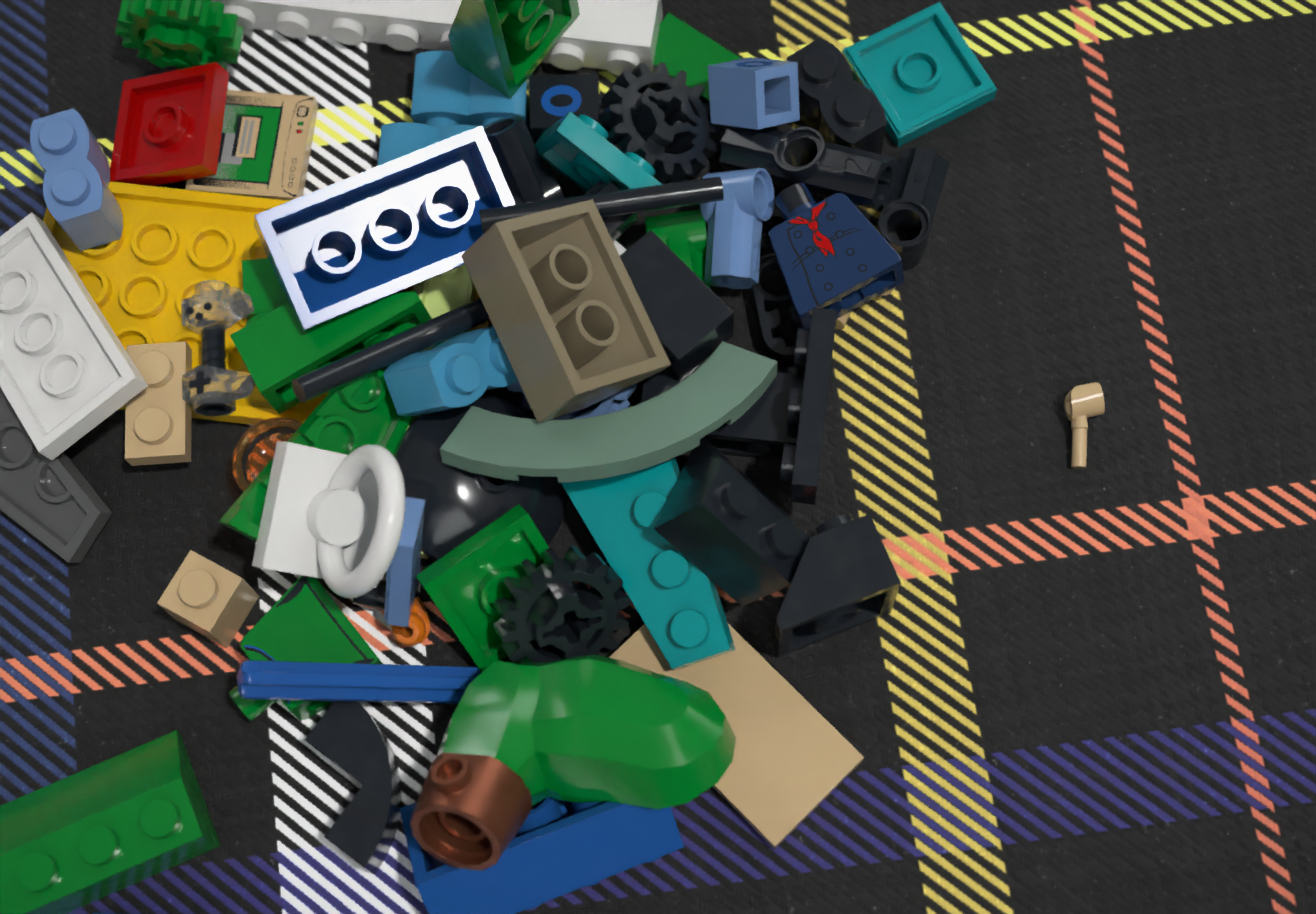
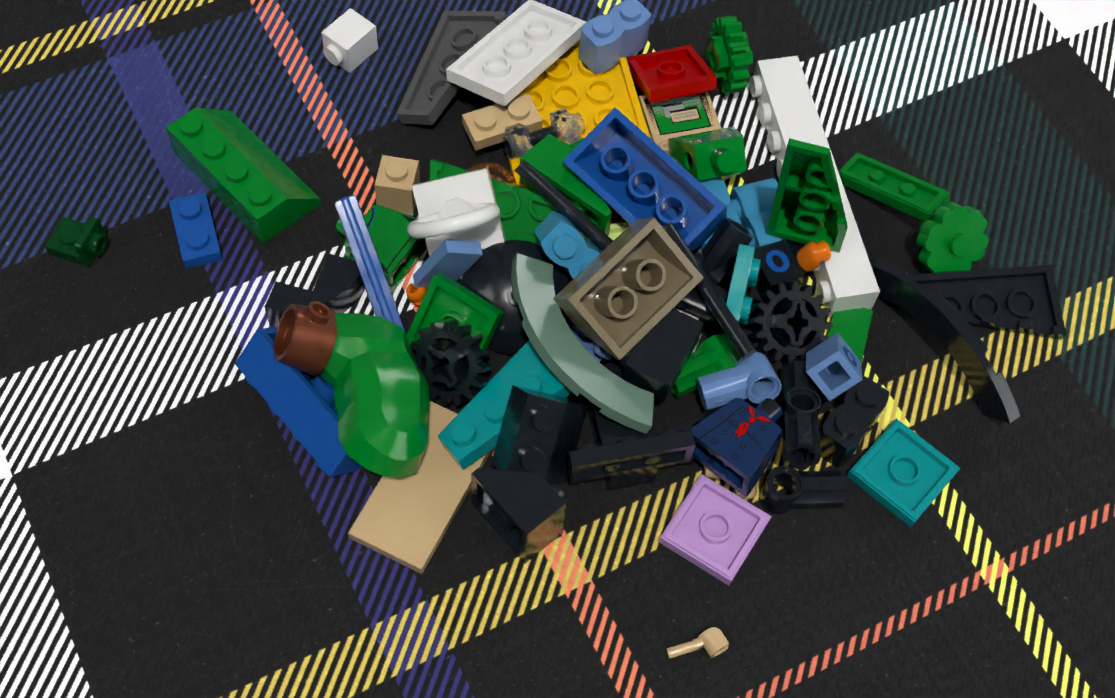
camera: 60 degrees right, 10 degrees down
(342, 123) = (712, 153): none -> green torso
(571, 51) = (811, 254): none -> orange arm
(923, 342) = (714, 529): none -> lavender tile

